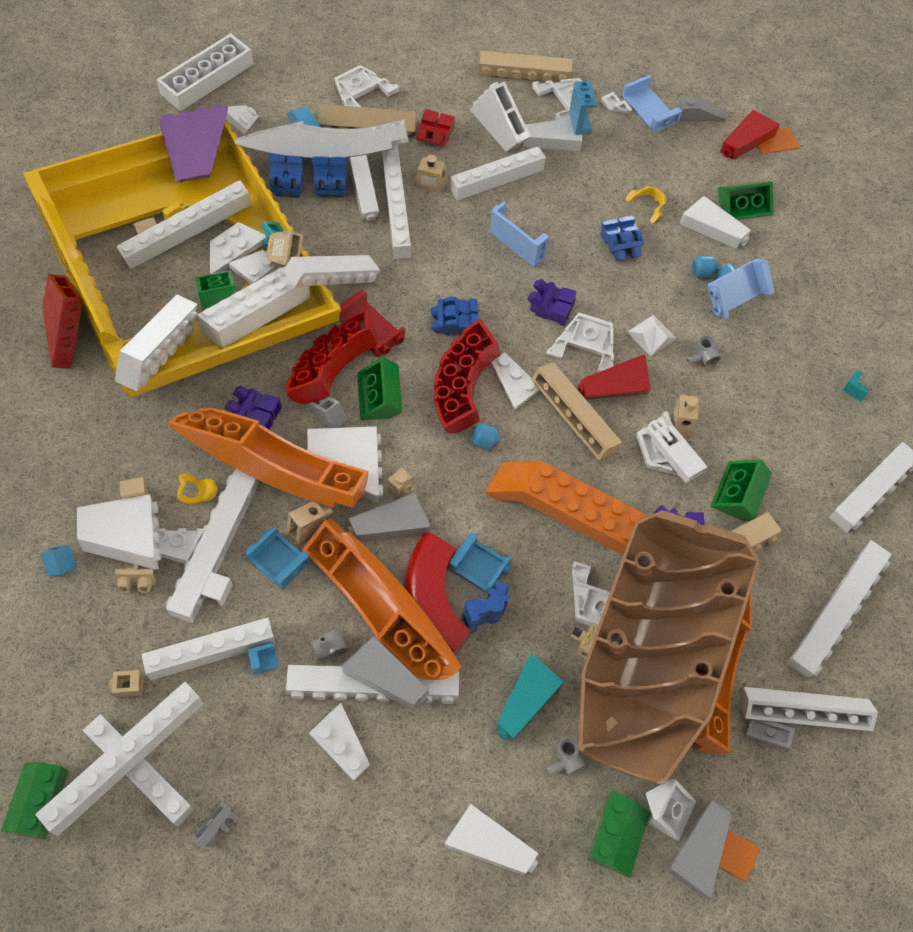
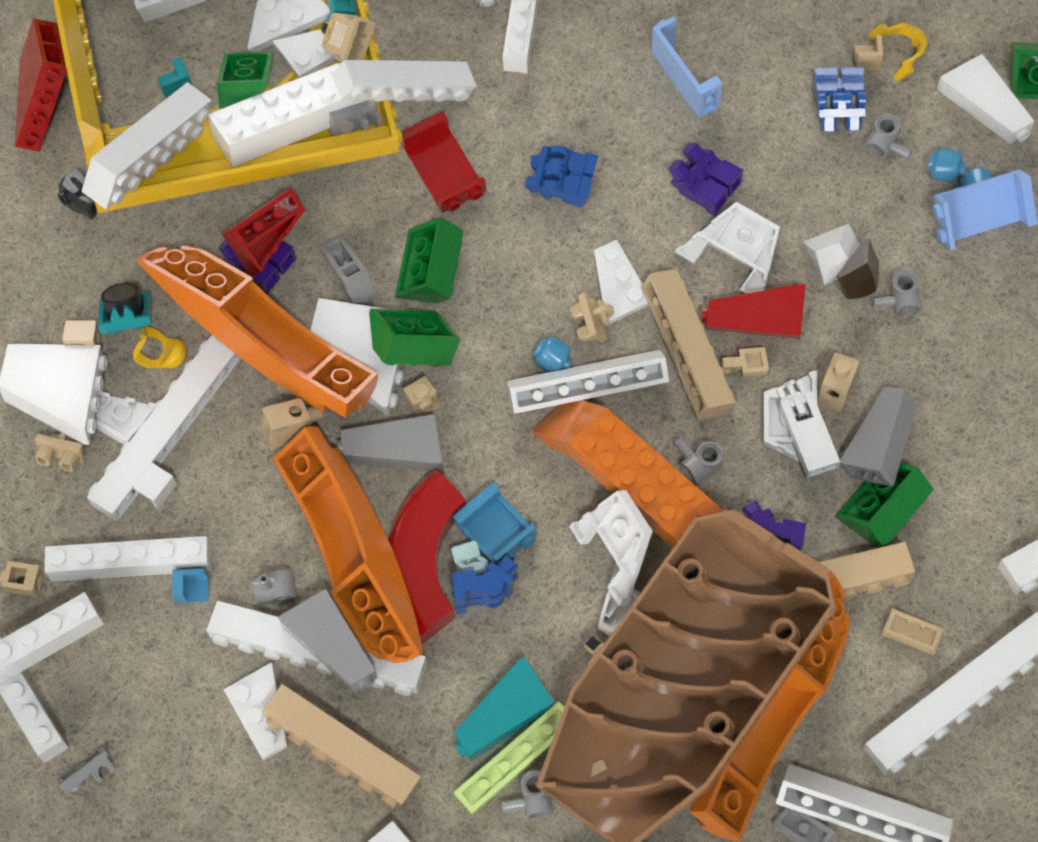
camera: 25 degrees right, 5 degrees up
(108, 391) = (72, 196): none -> black hand
(162, 464) = (124, 308): none -> piece
(165, 297) = (174, 80): none -> teal panel
(256, 388) = (263, 230): none -> red wedge
(277, 558) = (239, 461): dark azure panel -> none
(302, 302) = (354, 117): none -> light grey plate
(329, 355) = (372, 201): red brick -> none
(384, 442) = (412, 337): none -> green slope
(414, 755) = (341, 746): none -> tan brick
(458, 376) = (541, 262): red brick -> none
(467, 591) = (468, 558): none -> light aqua bracket
(499, 400) = (595, 316): none -> tan hips
(515, 449) = (587, 381): none -> white brick
(545, 732) = (510, 762): none -> yellowish green plate
(581, 547) = (625, 536): none -> white wing
(607, 487) = (694, 462): none -> light grey piece
(620, 414) = (750, 362): none -> tan plate
(633, 209) = (869, 55): none -> tan panel
(658, 256) = (885, 140): none -> light grey piece
(674, 343) = (860, 273): none -> dark brown slope
(726, 448) = (881, 439): none -> light grey slope
(791, 573) = (912, 631): none -> tan plate

